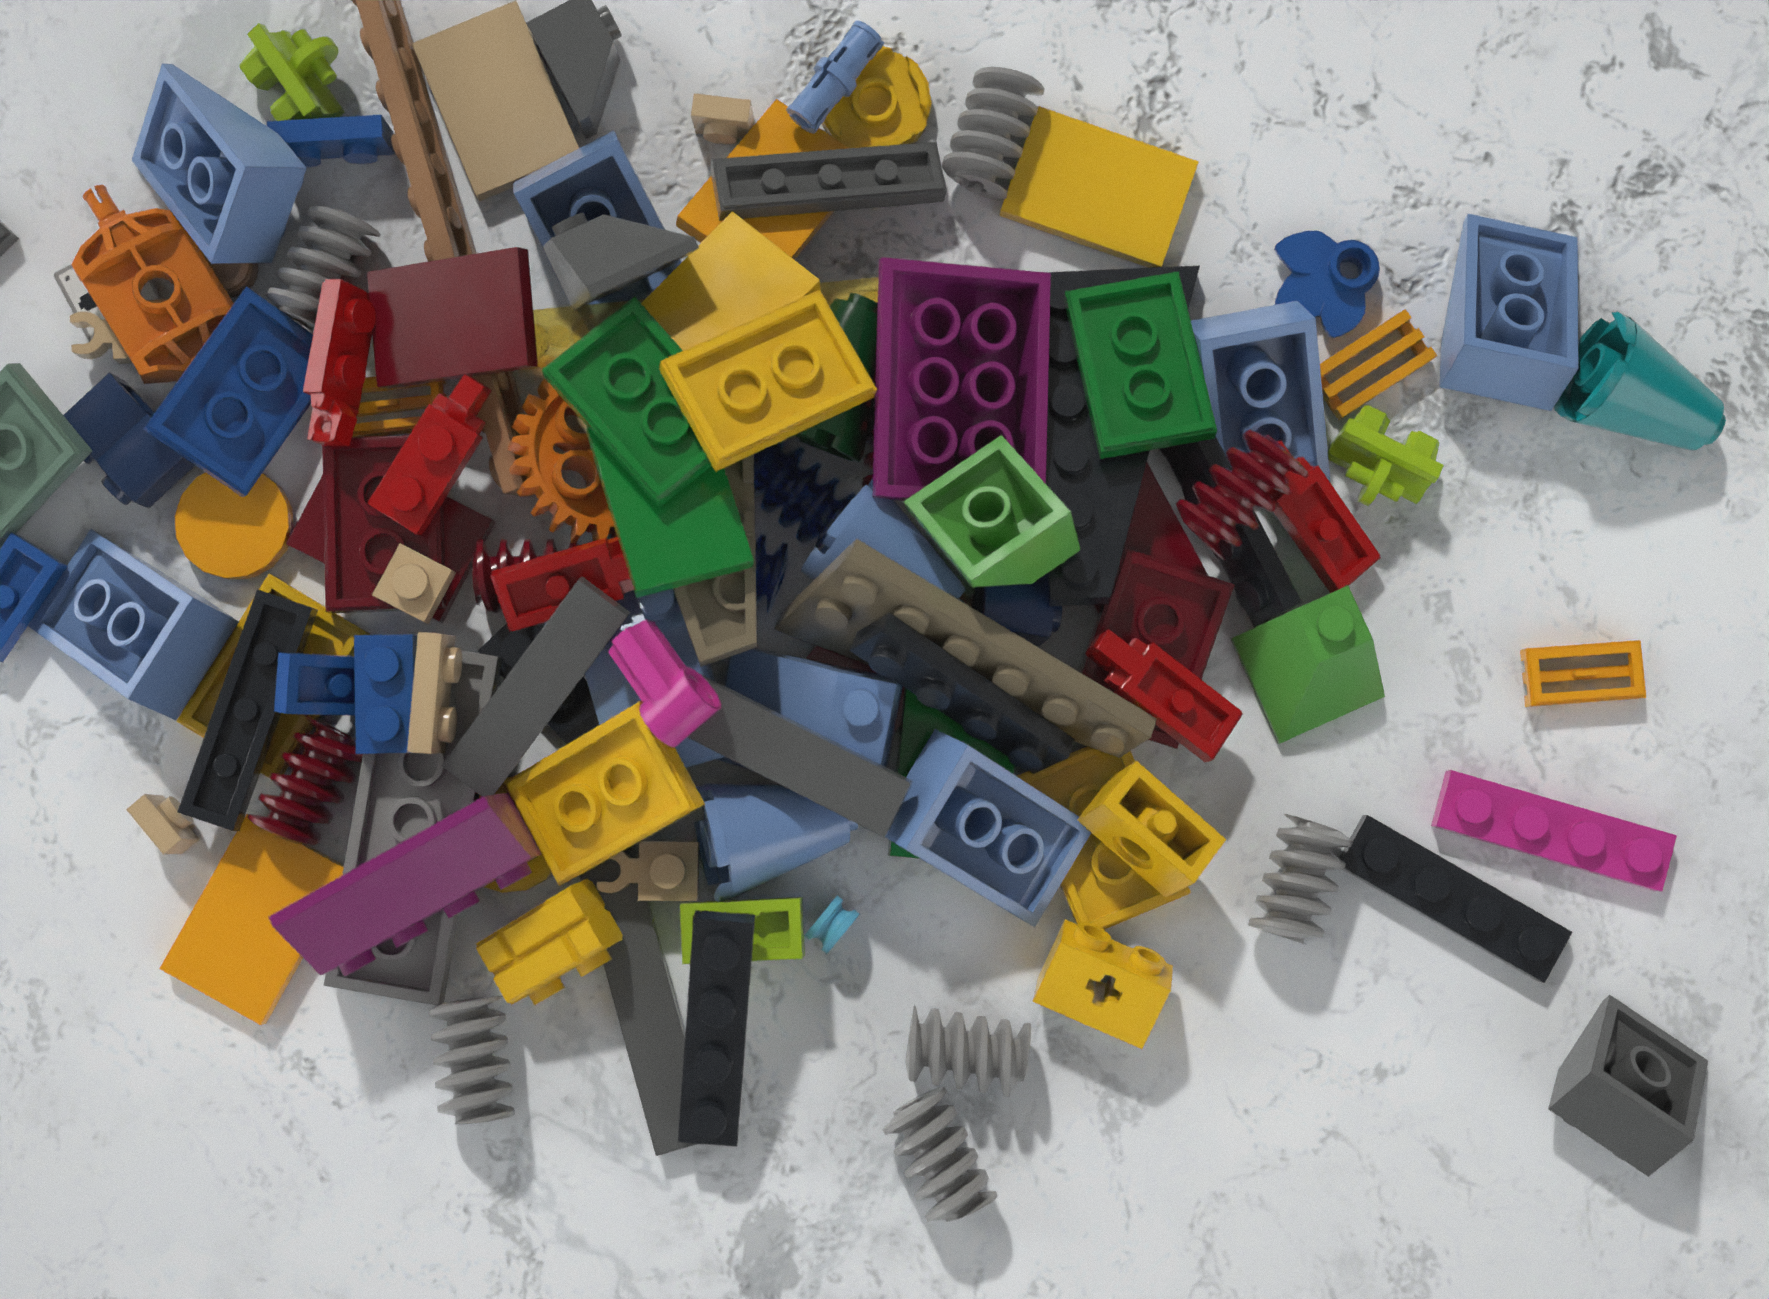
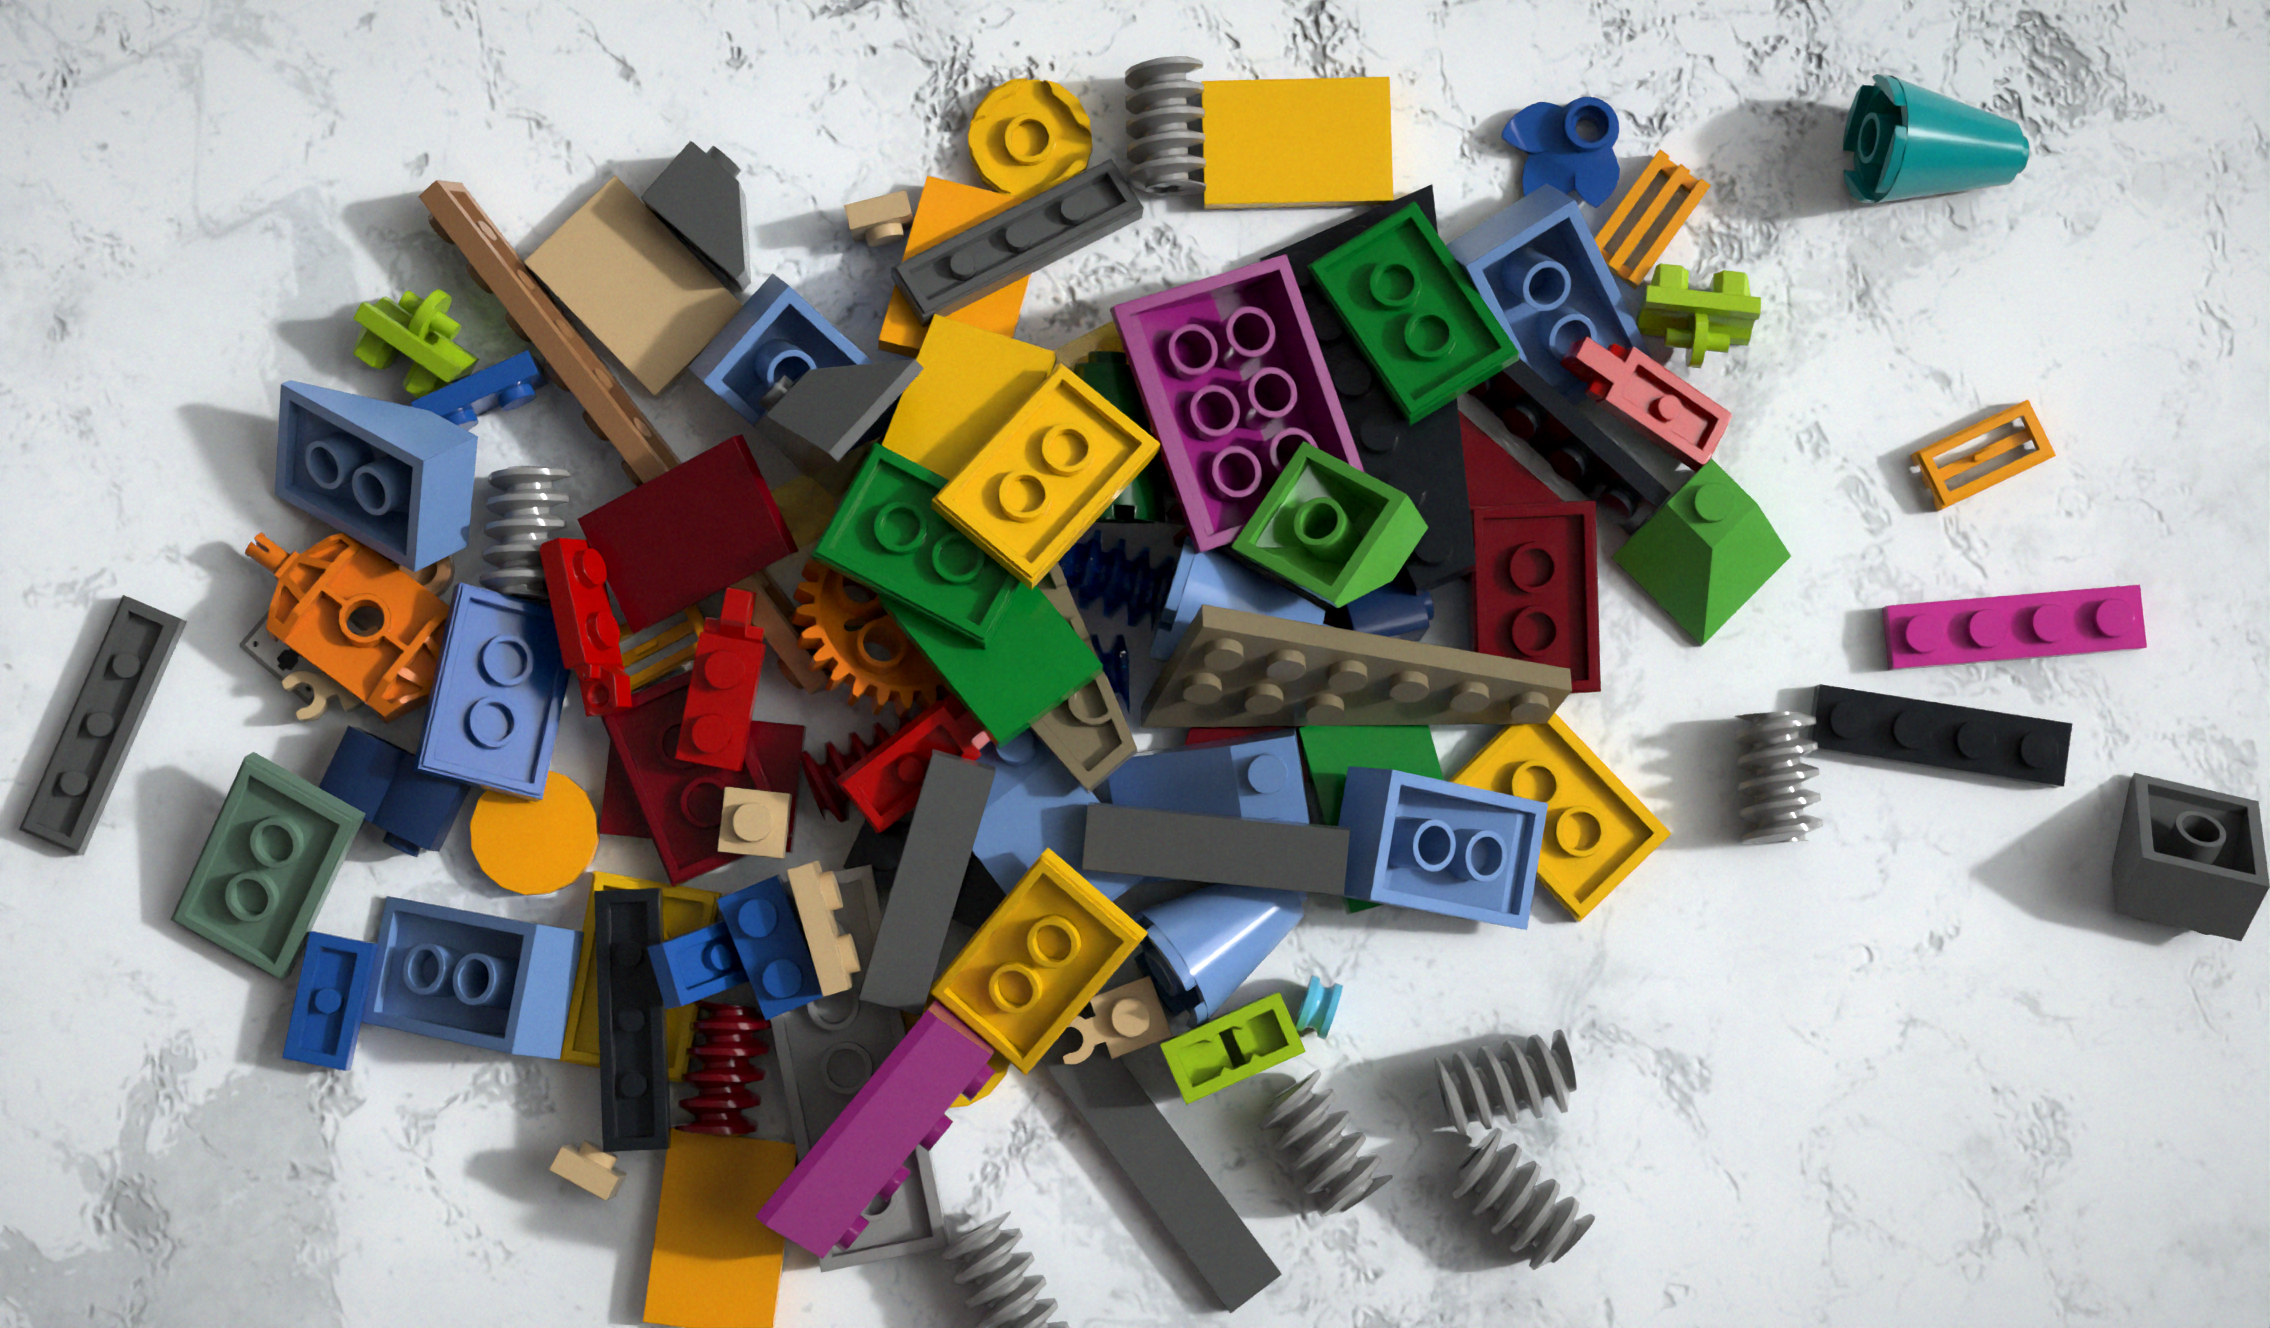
camera: 25 degrees left, 0 degrees up
(549, 942) = (1038, 1137): yellow brick -> none
(672, 695) = (1073, 832): dark pink piece -> none
(716, 1027) = (1245, 1156): black plate -> none
(788, 1045) = (1322, 1146): none -> light grey piece
(835, 76) = (982, 131): medium blue pin -> none
(961, 694) = (1363, 720): black plate -> none
(1120, 1007) = (1645, 977): yellow brick -> none
(1151, 829) = (1608, 783): yellow brick -> none
(1168, 691) = (1569, 637): red hinge -> none
(1239, 491) = (1565, 405): dark red piece -> none
(1512, 314) = (1770, 113): medium blue slope -> none

